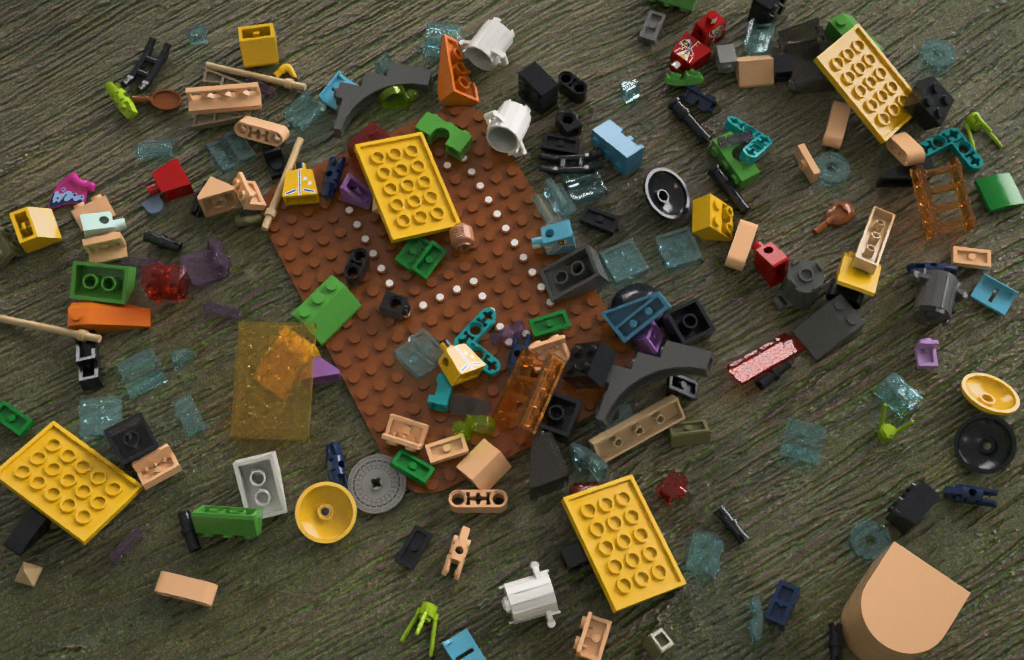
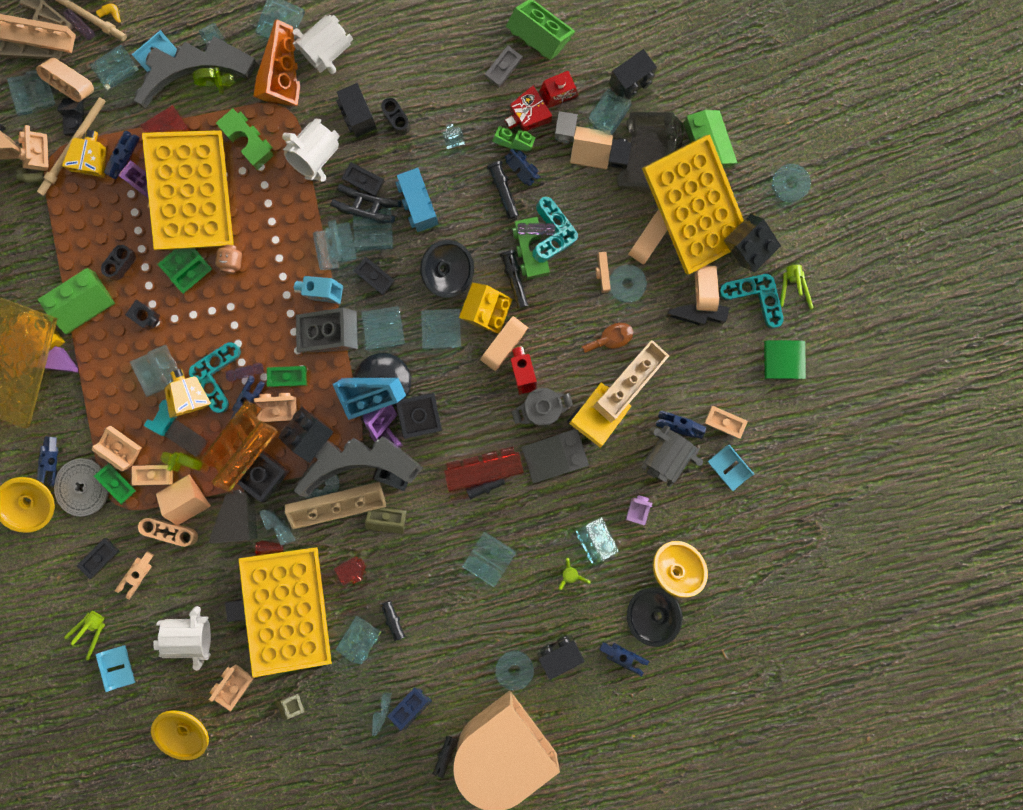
camera: 15 degrees right, 20 degrees up
(573, 128) = (380, 166): black brick -> none
(928, 209) = (705, 343): clear orange fence -> none

